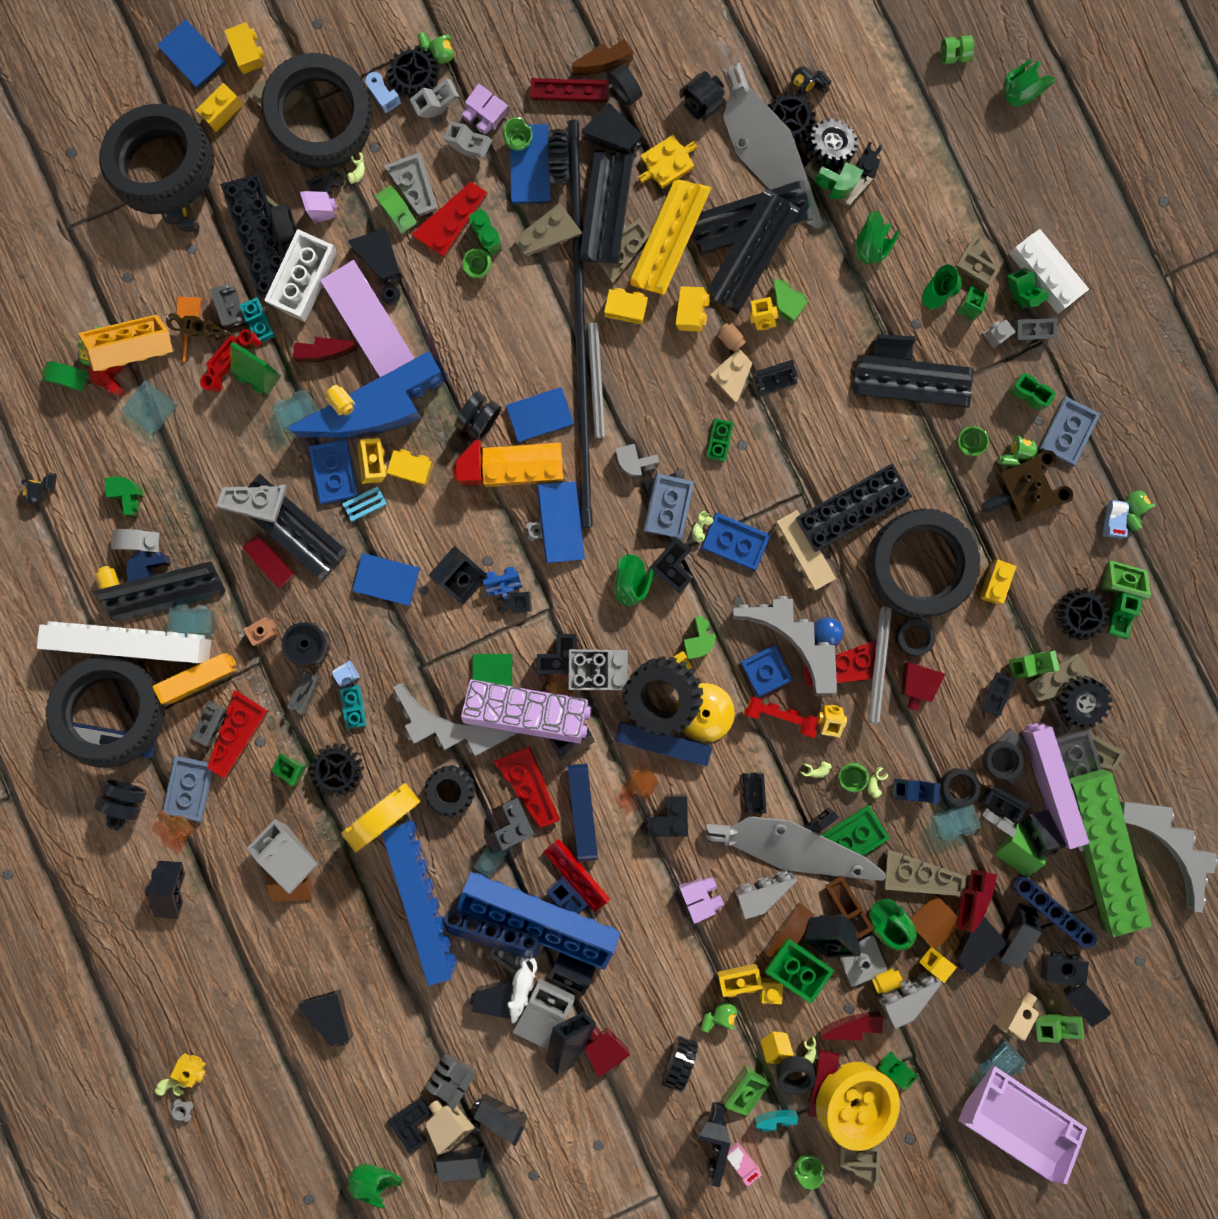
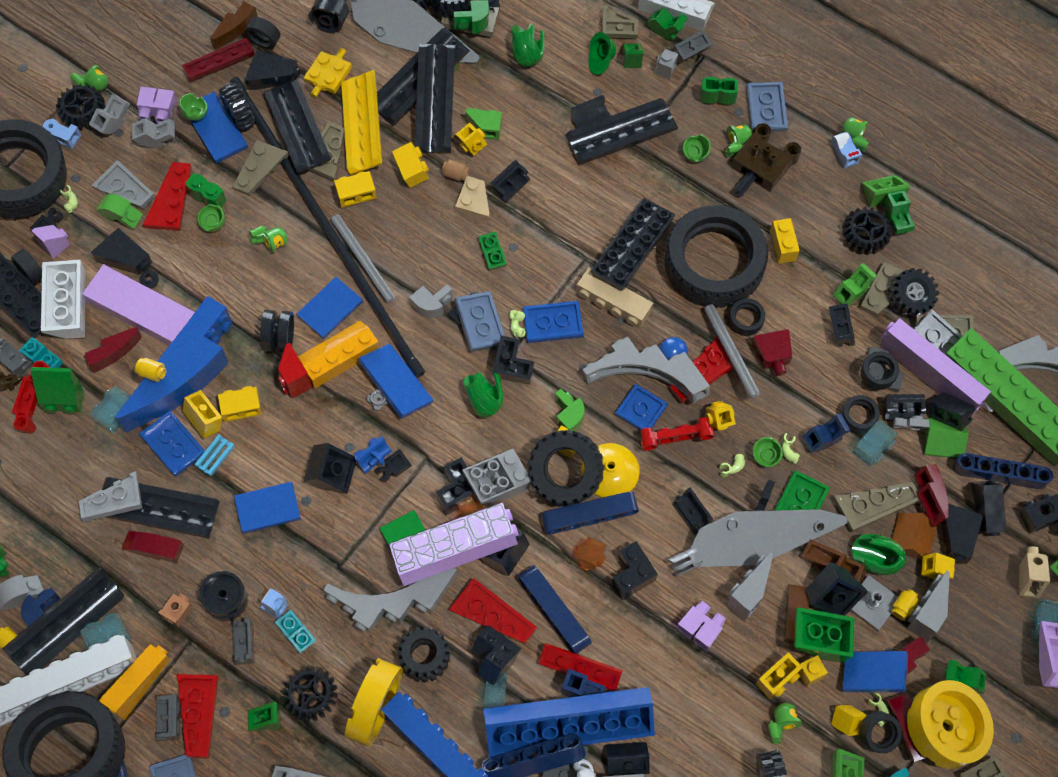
camera: 30 degrees left, 20 degrees down
(523, 315) = (272, 238): none -> bright green piece
(824, 1026) = (876, 672): none -> blue tile

